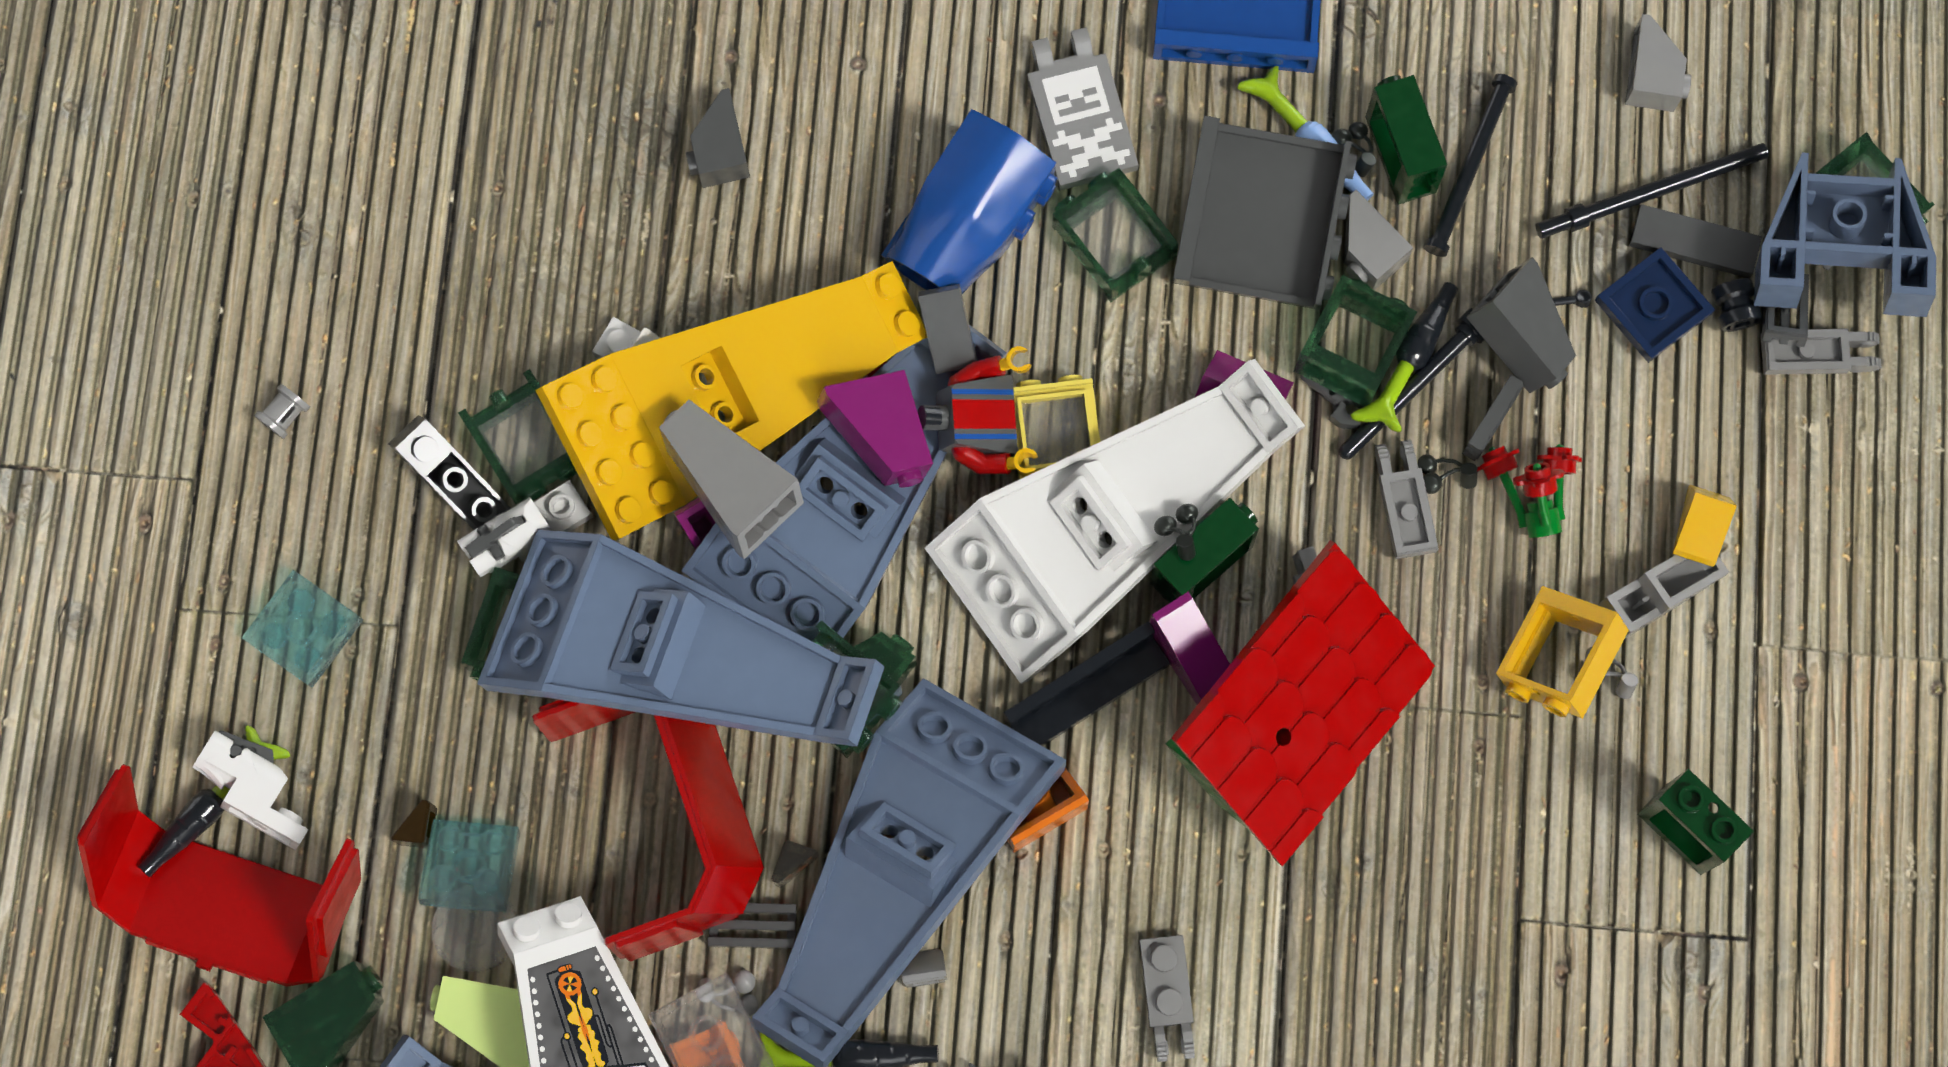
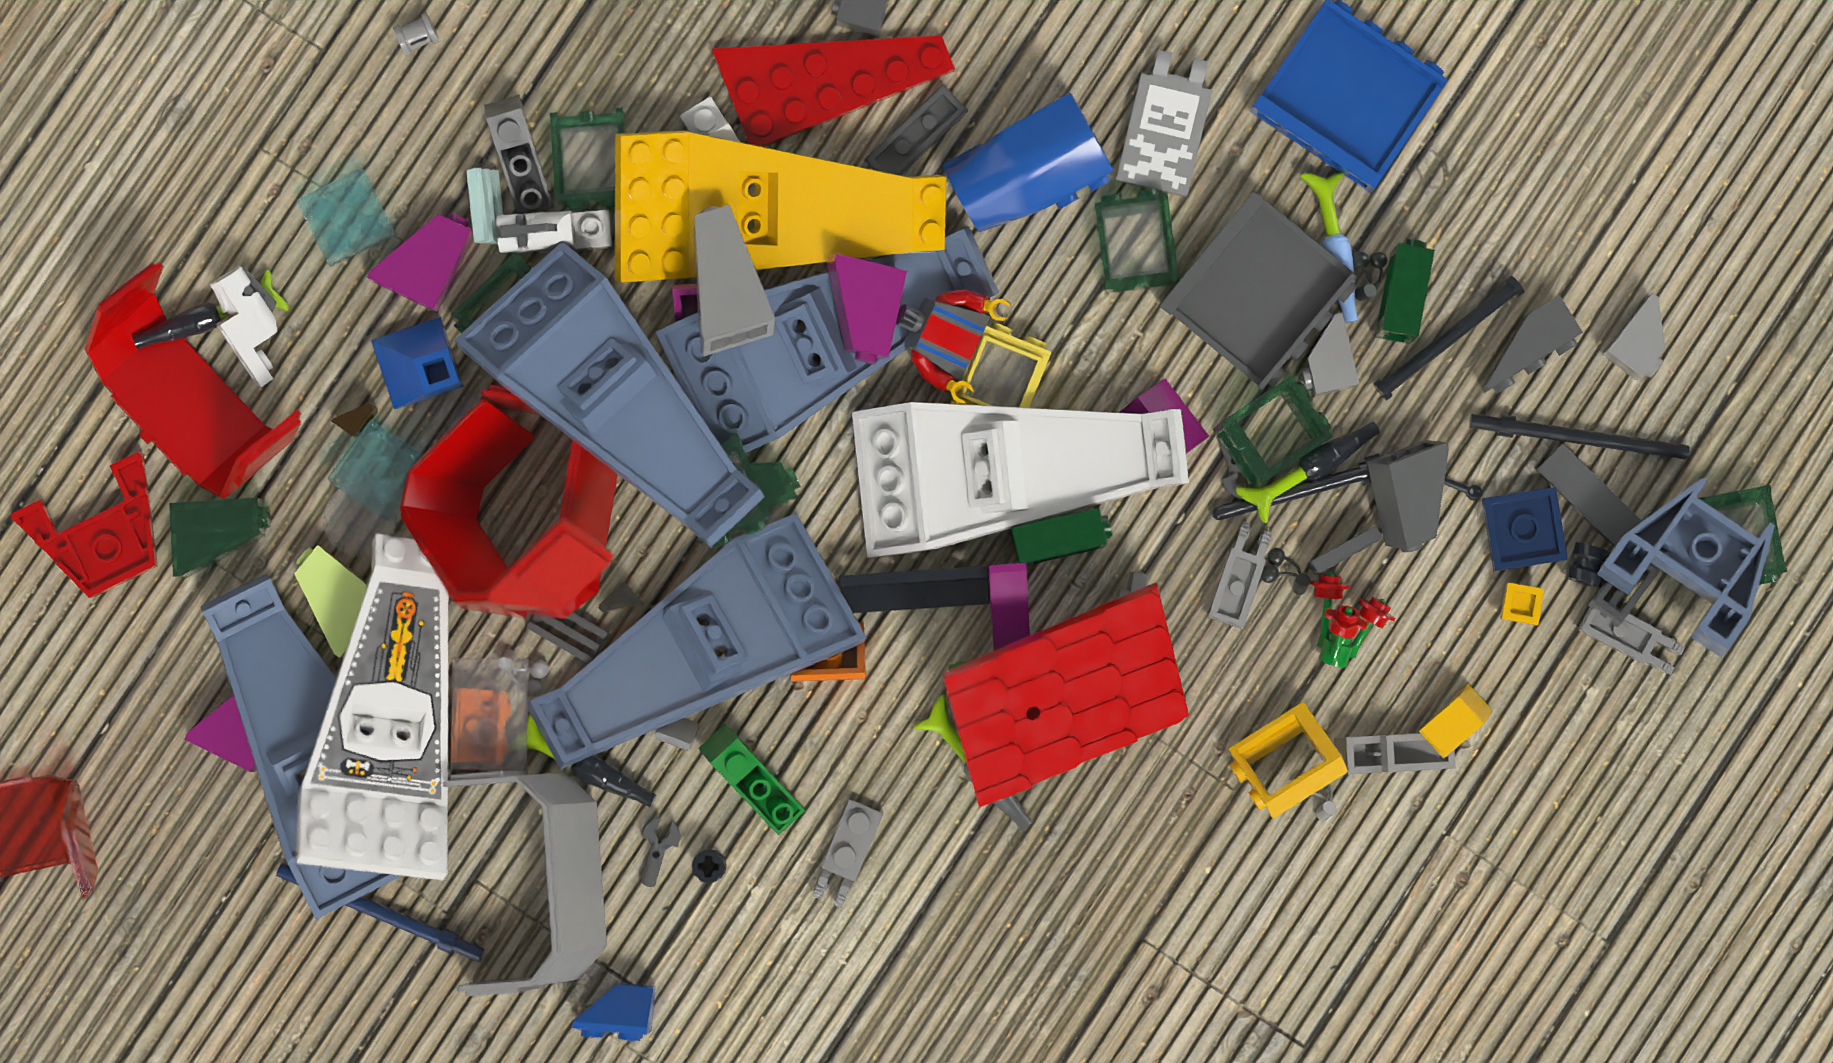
camera: 30 degrees right, 10 degrees up
(408, 629) = (426, 261): none -> magenta slope
(439, 540) = (484, 204): none -> light aqua tile
(453, 736) = (417, 363): none -> blue slope
(554, 860) = (442, 513): none -> red piece
(703, 258) = (808, 84): none -> red wing
(841, 239) = (917, 133): none -> dark grey tile
(947, 328) = (960, 253): dark grey tile -> none
(1027, 973) = (751, 779): none -> green slope
(1167, 525) = (1038, 503): pearl dark grey piece -> none
(1189, 811) = (939, 723): none -> lime piece
(1553, 119) = (1537, 335): none -> dark grey slope
(1684, 821) = (1312, 958): dark green window -> none
(1697, 375) = (1522, 604): none -> yellow tile

